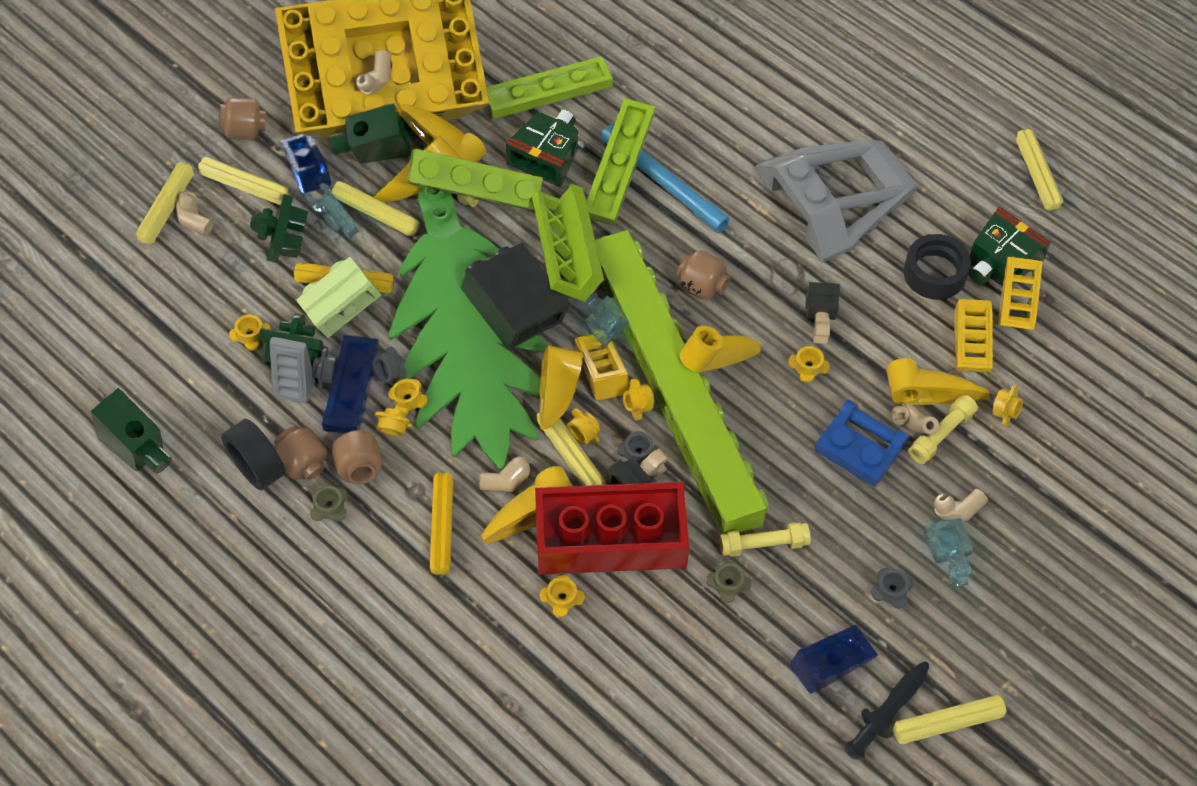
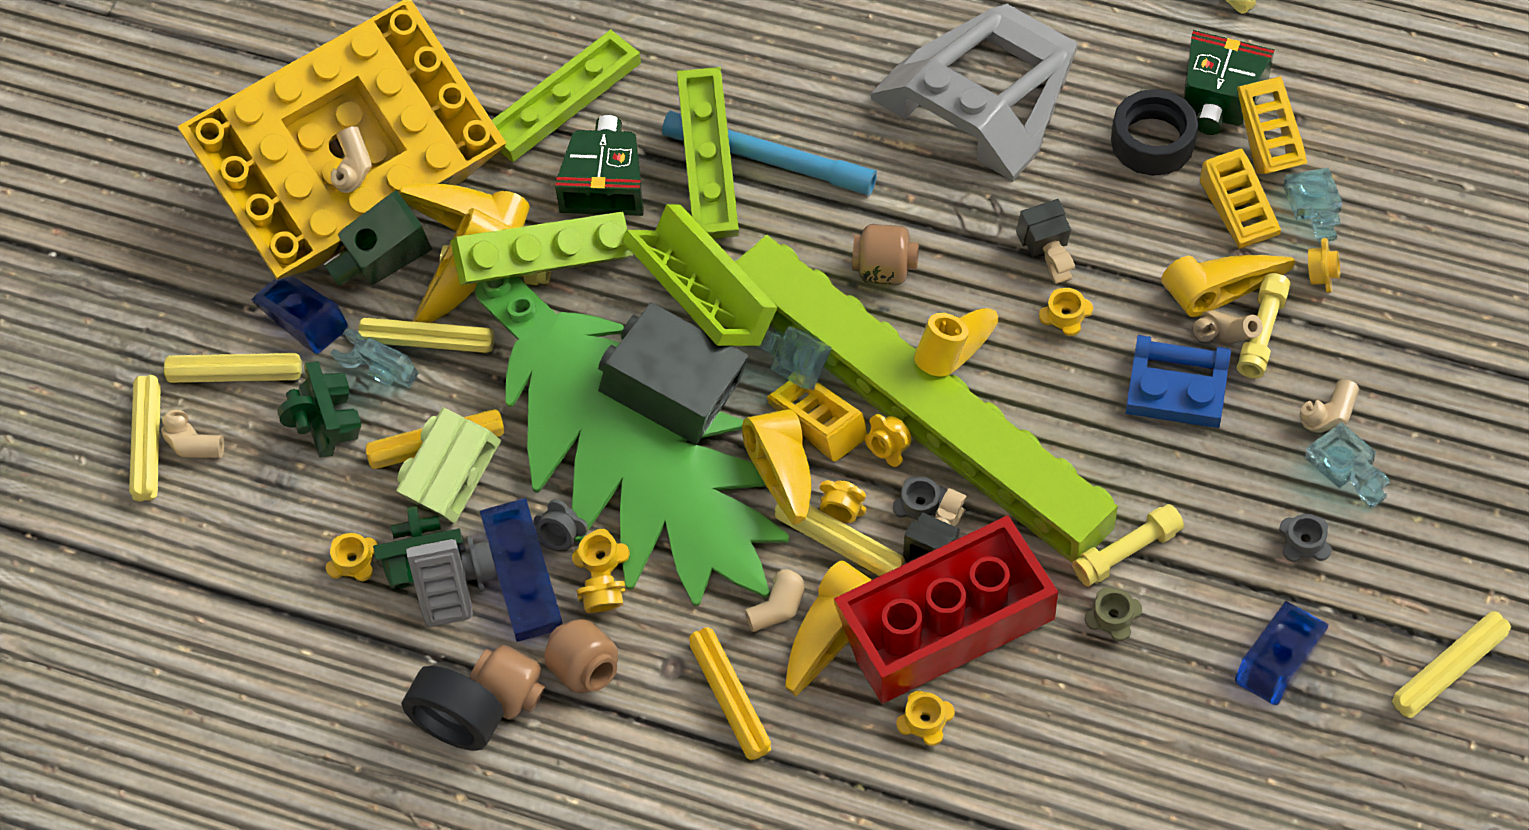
camera: 20 degrees left, 0 degrees up
(129, 433) = (276, 750): dark green torso -> none
(241, 118) = (188, 288): medium nougat head -> none
(325, 495) = (568, 718): olive plate -> none
(879, 720) = (1372, 700): black sword -> none
(1029, 357) = (1315, 197): none -> clear light blue plate

